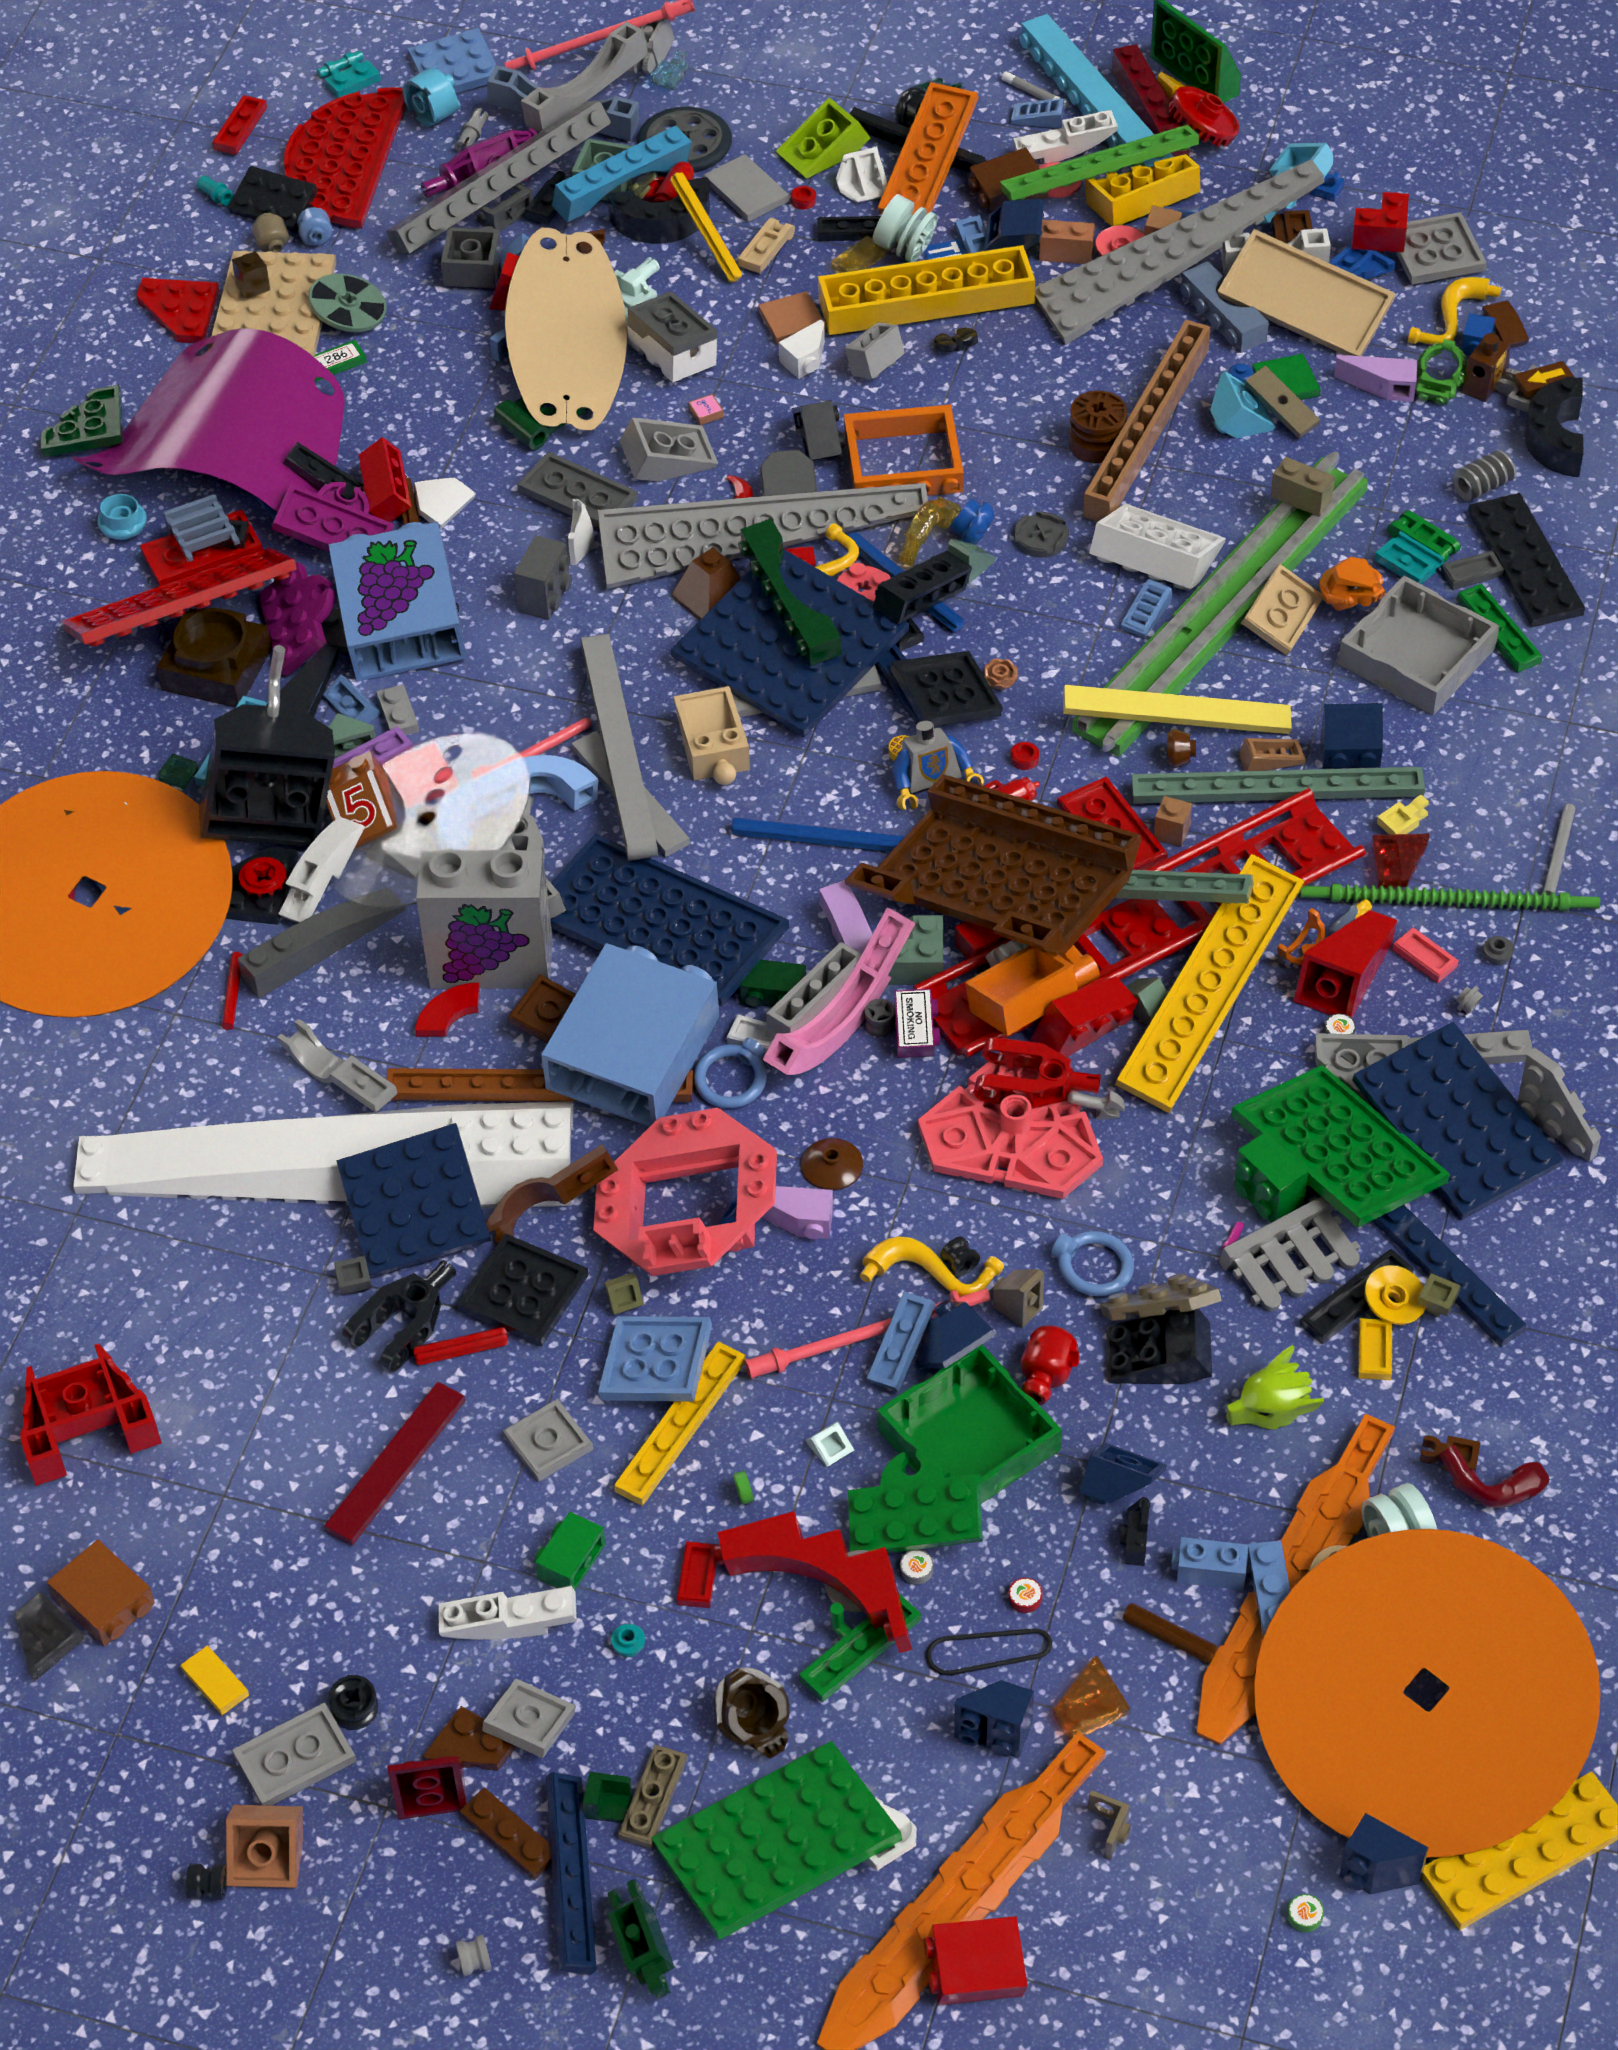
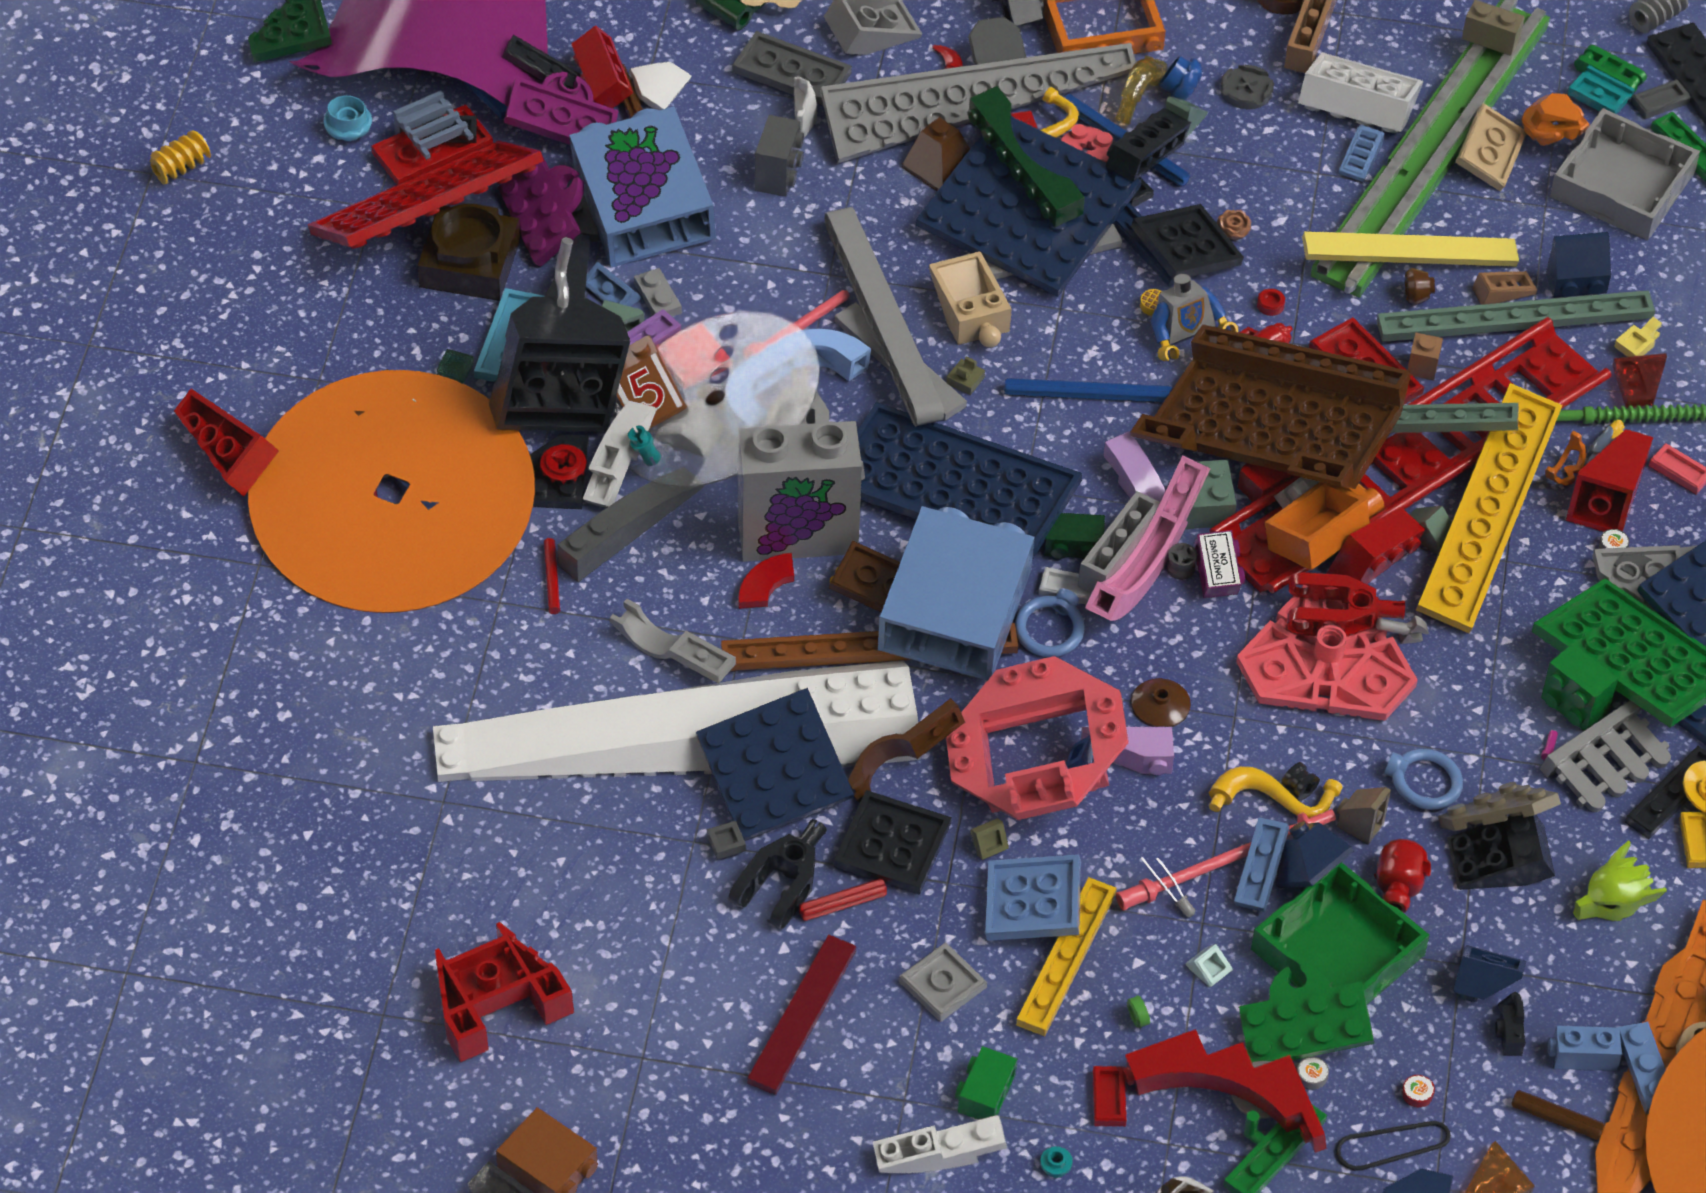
camera: 10 degrees left, 0 degrees up
(342, 860) = (643, 443): none -> teal pin
(694, 813) = (966, 376): none -> olive tile
(813, 1376) = (1183, 903): none -> piece

